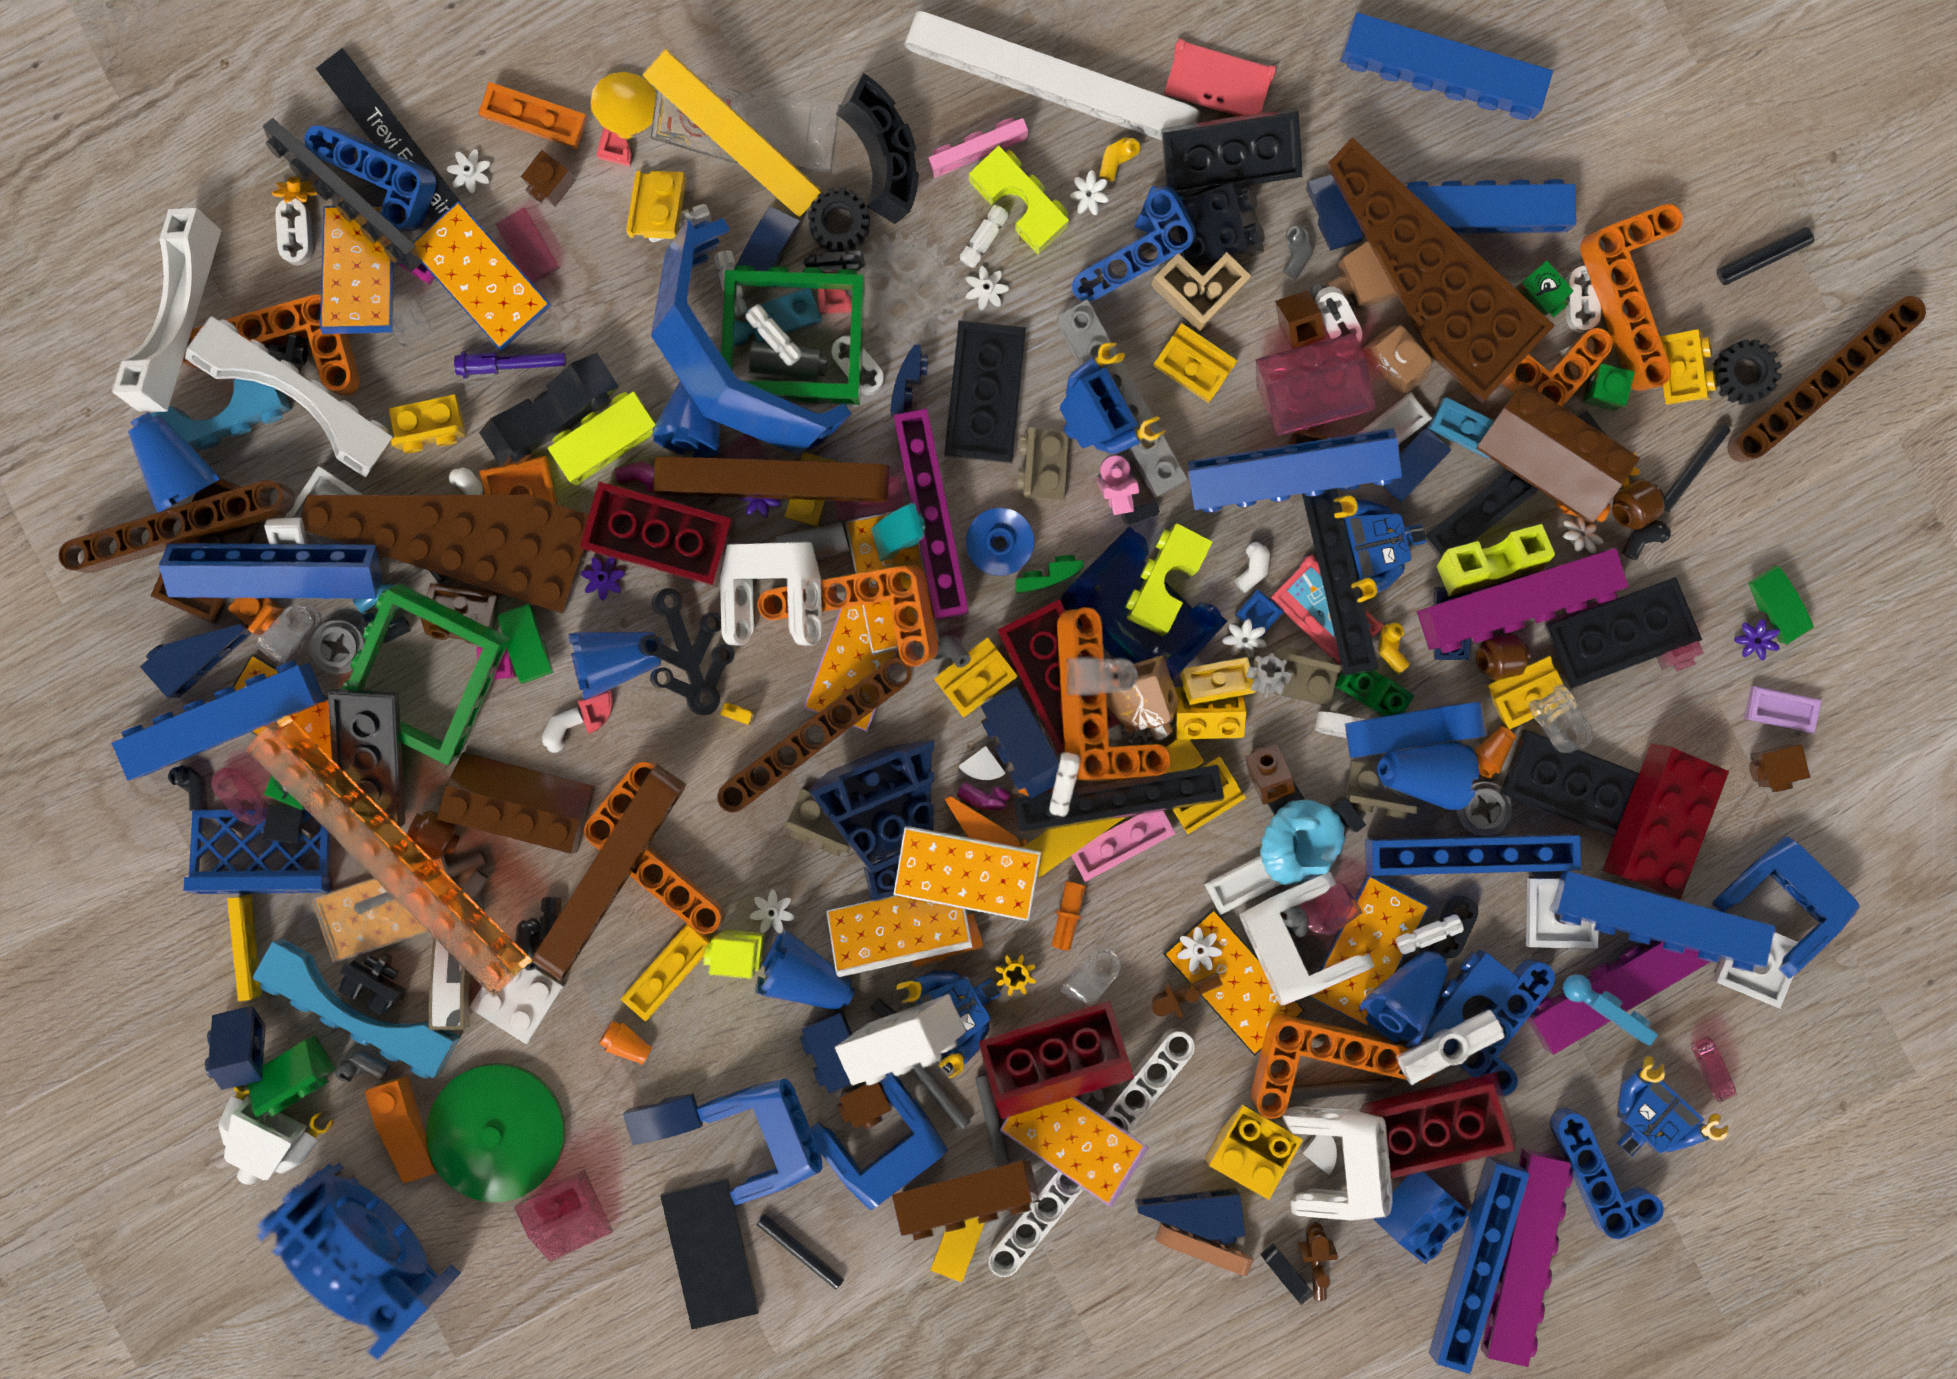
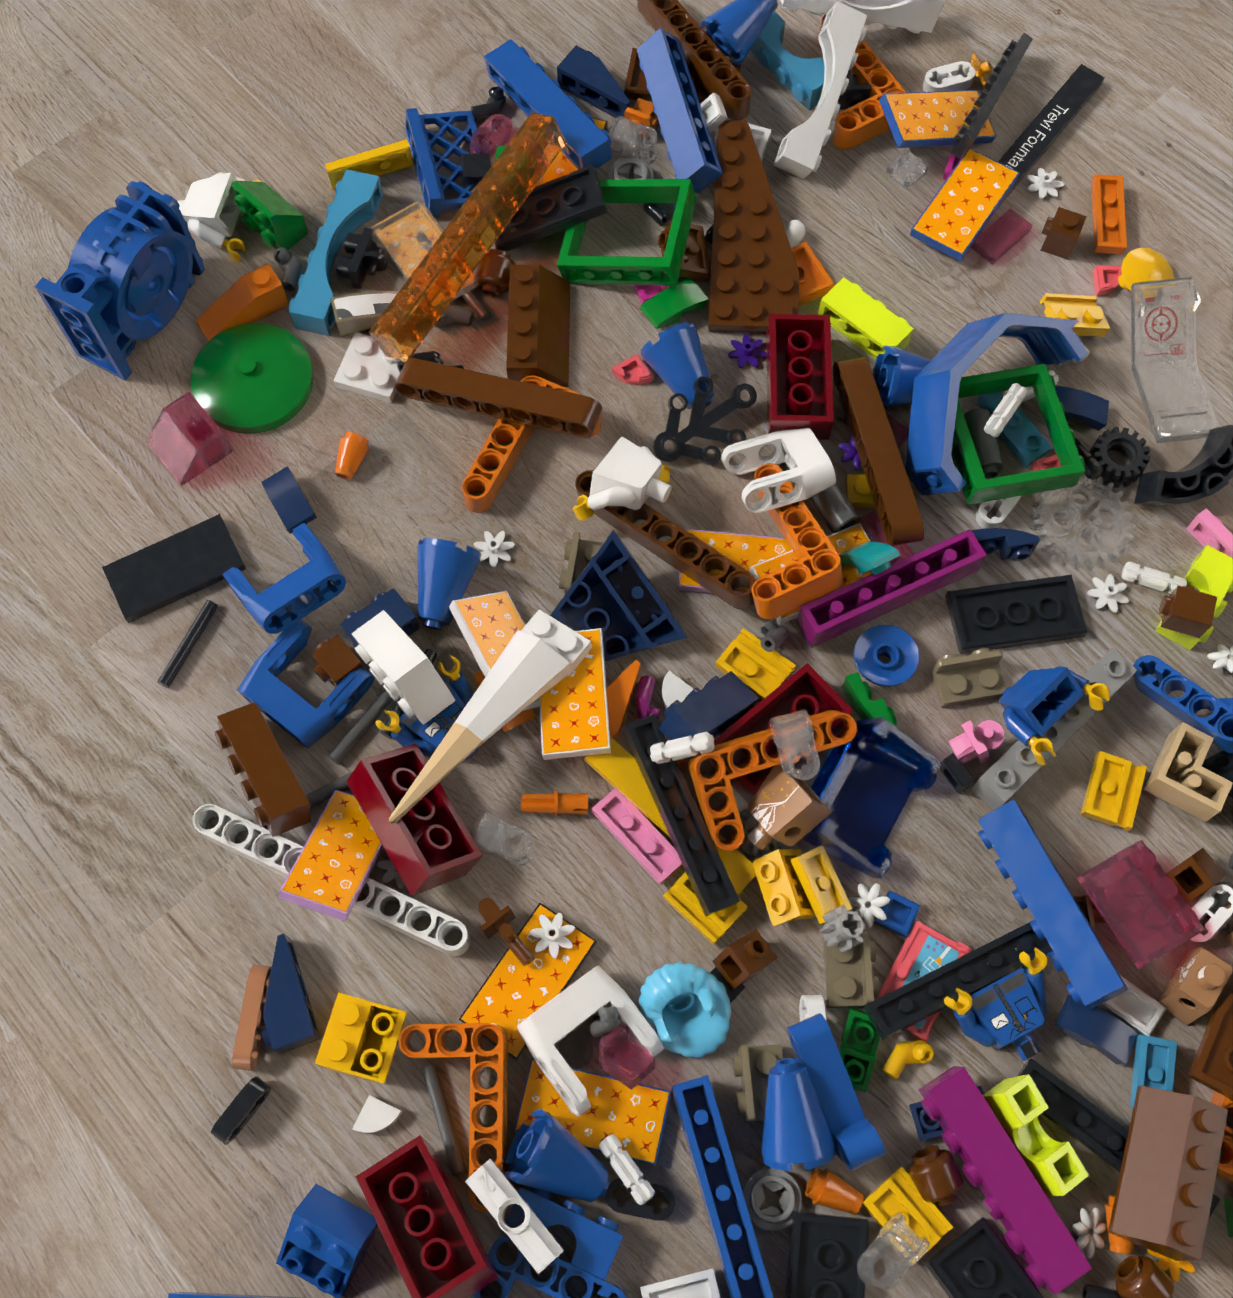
camera: 75 degrees right, 20 degrees down
(236, 1048) = (286, 170): dark blue brick -> none
(370, 166) = (1018, 135): blue beam -> none
(427, 423) = (831, 198): yellow bracket -> none
(491, 363) = (889, 214): dark purple pin -> none
(556, 728) = (609, 343): white arm -> none
(570, 397) = (897, 287): black brick -> none
(636, 471) = (842, 349): magenta arm -> none
(666, 972) = (420, 476): yellow tile -> none
(731, 132) = (1161, 346): yellow tile -> none
(735, 953) = (450, 508): neon yellow arch -> none
(745, 760) = (624, 479): none -> white torso
(934, 914) = (525, 670): none -> white plate
(957, 1250) = (212, 781): yellow tile -> none
(1020, 983) = (494, 772): yellow gear -> none
(1040, 226) = (1187, 611): none -> reddish brown brick
(1178, 551) = (931, 816): neon yellow arch -> none
(1240, 885) = (624, 962): white tile -> none
(1258, 566) = (941, 900): white arm -> none
(1317, 1251) = (270, 1138): reddish brown arm -> none
(1348, 814) = (725, 1051): black tile -> none
(1365, 1164) = (371, 1153): white connector -> none

